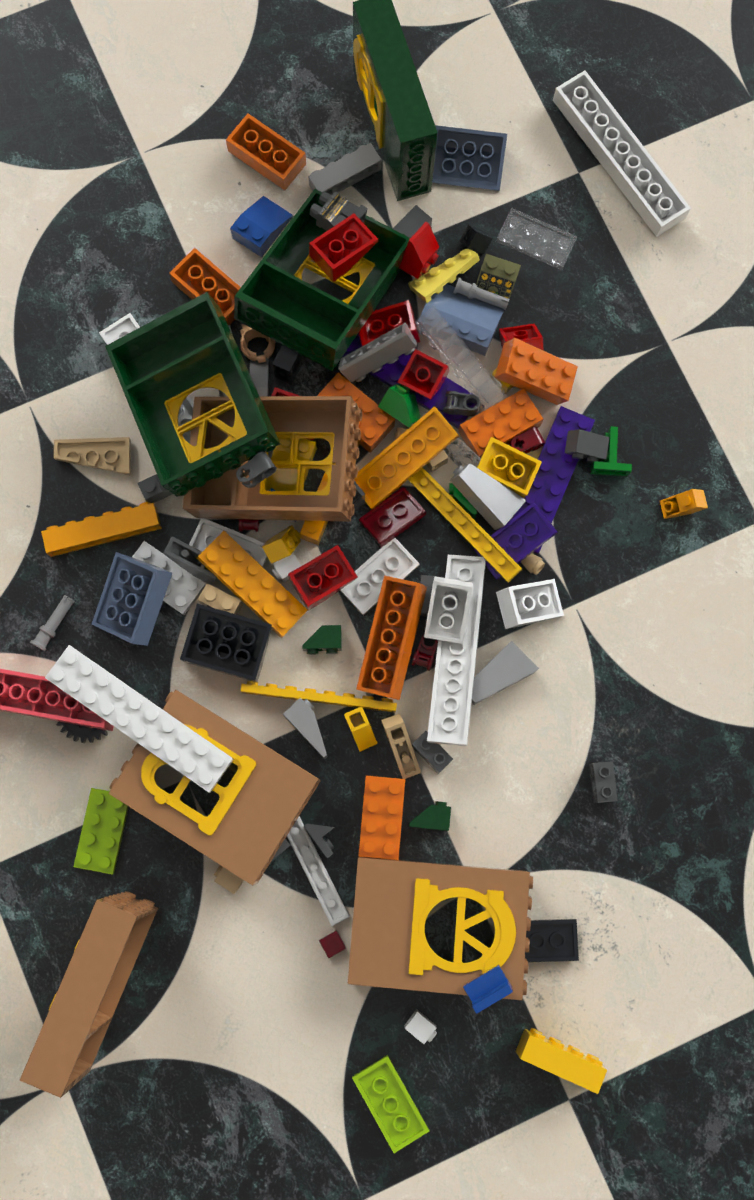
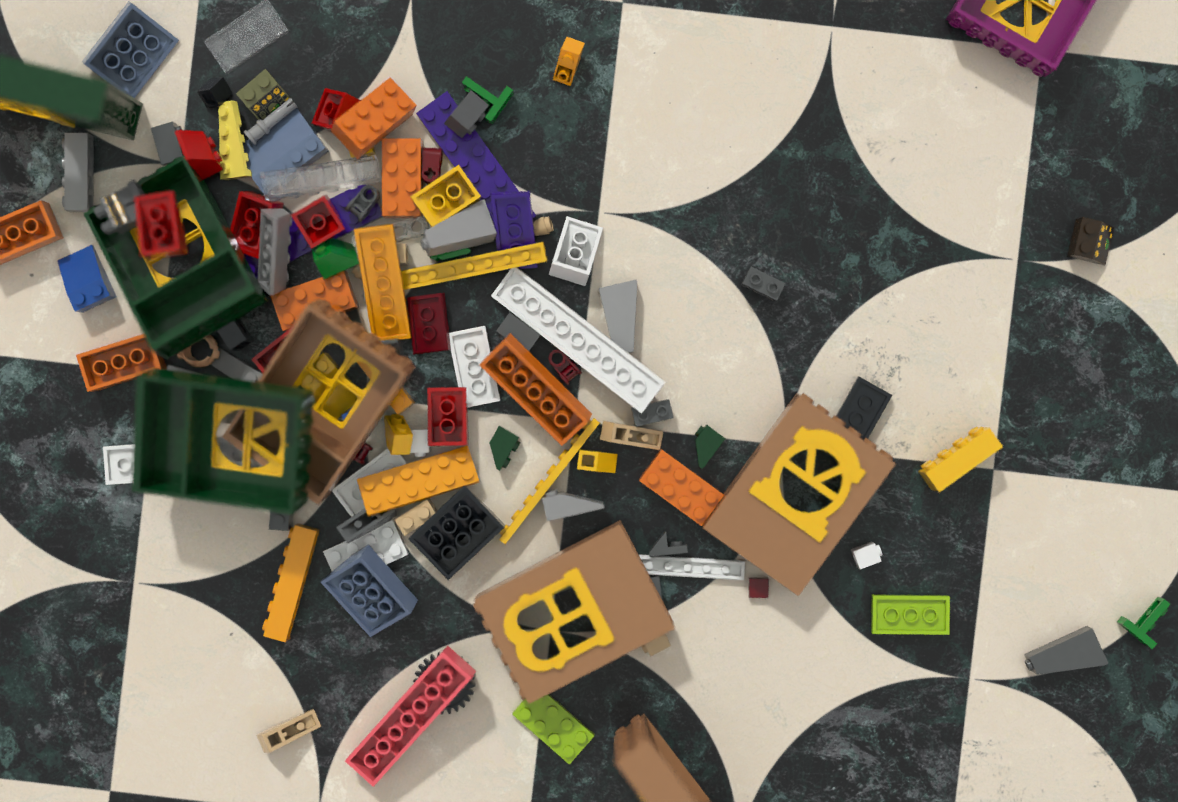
camera: 55 degrees left, 10 degrees up
(48, 631) = (354, 677): light grey pin -> none
(98, 453) = (221, 543): tan wing -> none
(139, 718) = (481, 644): white plate -> none
(257, 468) = (324, 421): dark grey piece -> none
(448, 610) = (540, 327): white slope -> none
(488, 989) = (870, 486): blue panel -> none

